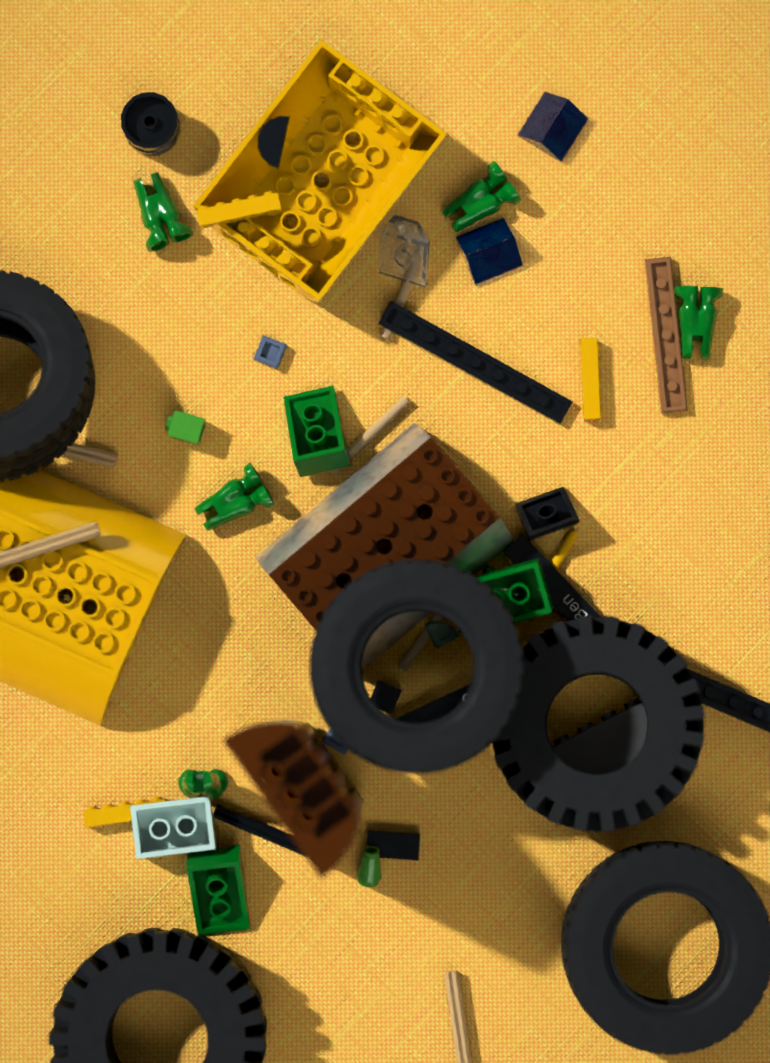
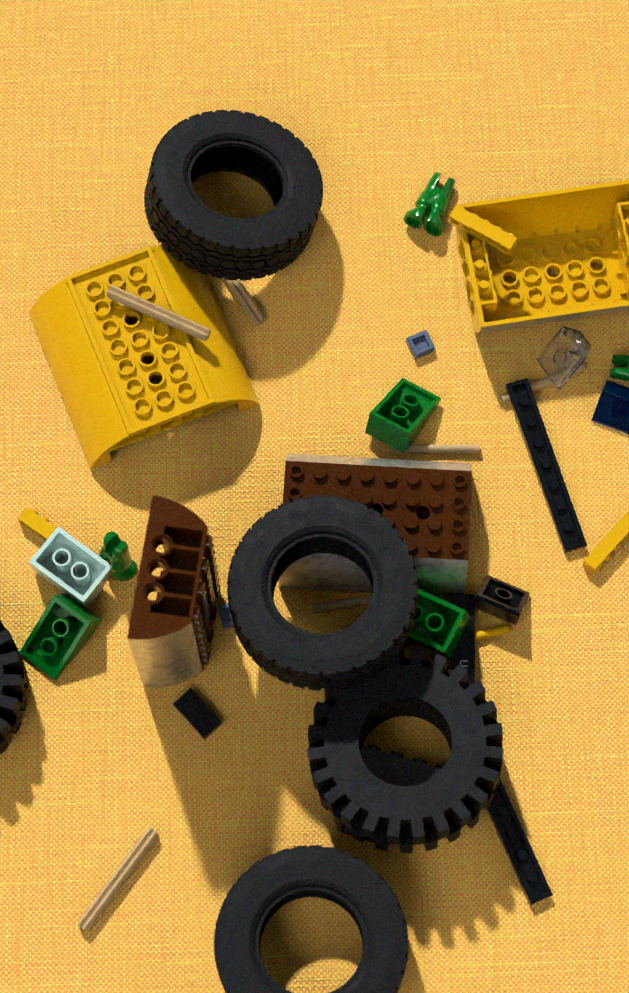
camera: 45 degrees right, 15 degrees down
(155, 109) = (478, 147): black wheel -> none
(185, 427) = (323, 340): bright green brick -> none
(231, 499) = (307, 409): green piece -> none
(256, 827) = (119, 613): black axle -> none
(272, 140) = (544, 208): black tile -> none
(369, 867) = (168, 711): bright green cone -> none
(385, 696) = (289, 613): black tile -> none
(440, 633) = (357, 606): sand green tile -> none

